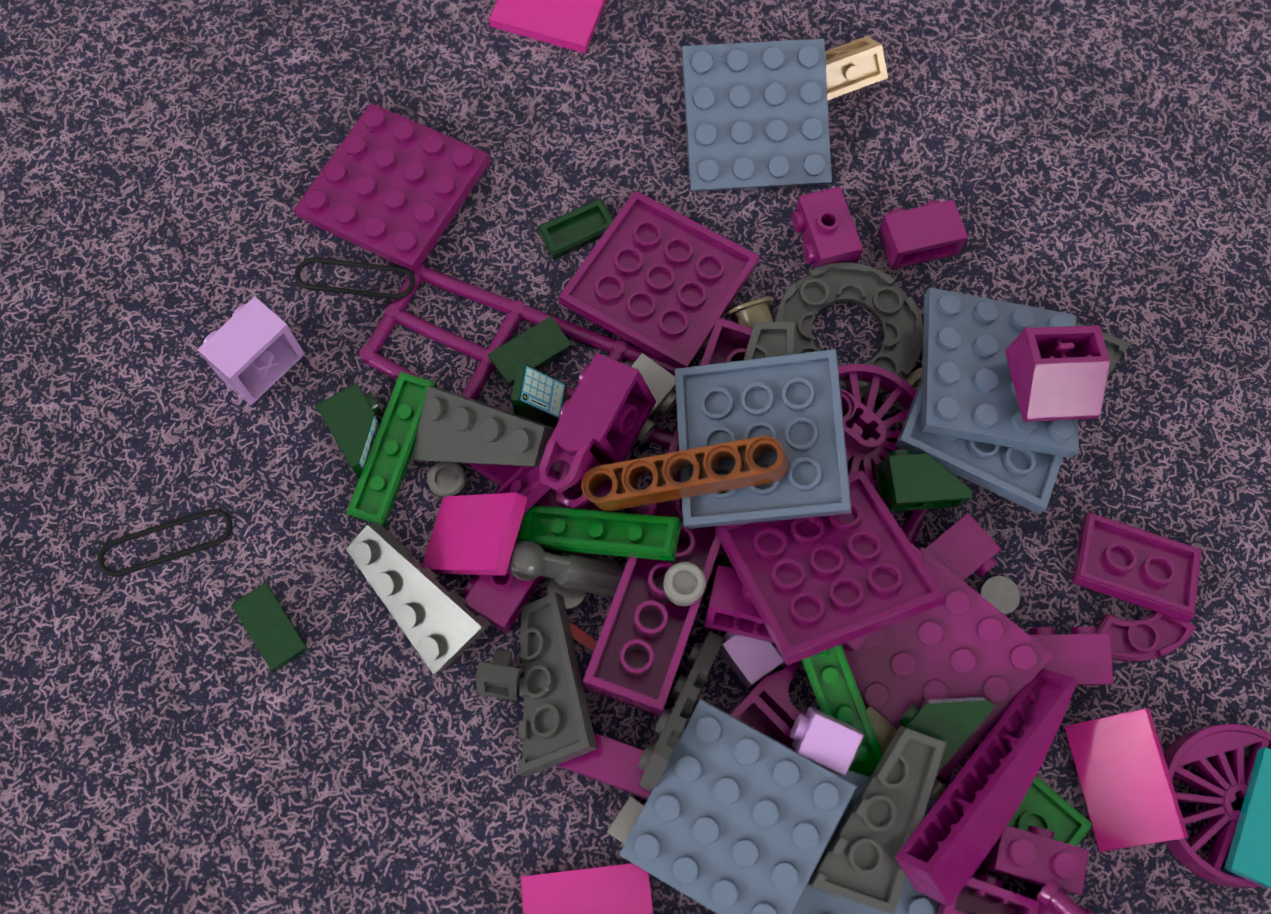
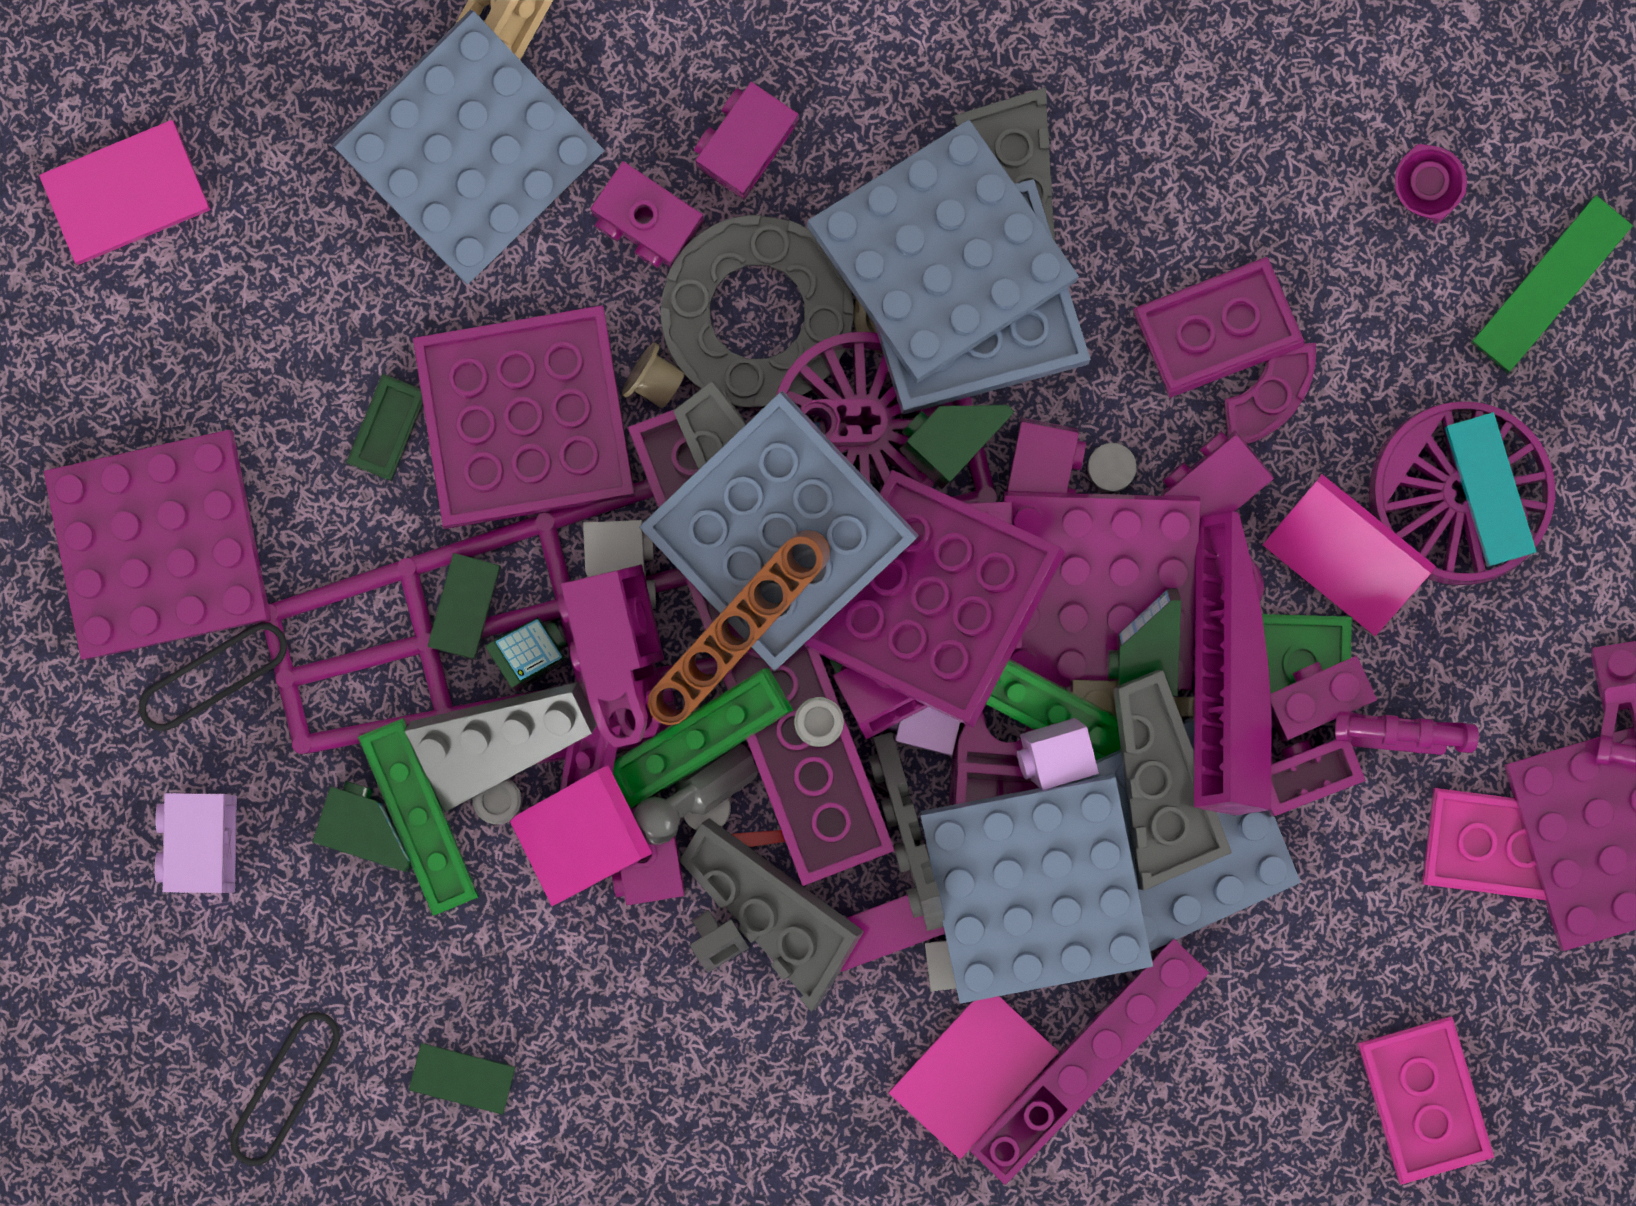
camera: 35 degrees left, 15 degrees up
(425, 610) = (596, 942): wing -> none
(1059, 372) = (1002, 224): magenta slope -> none

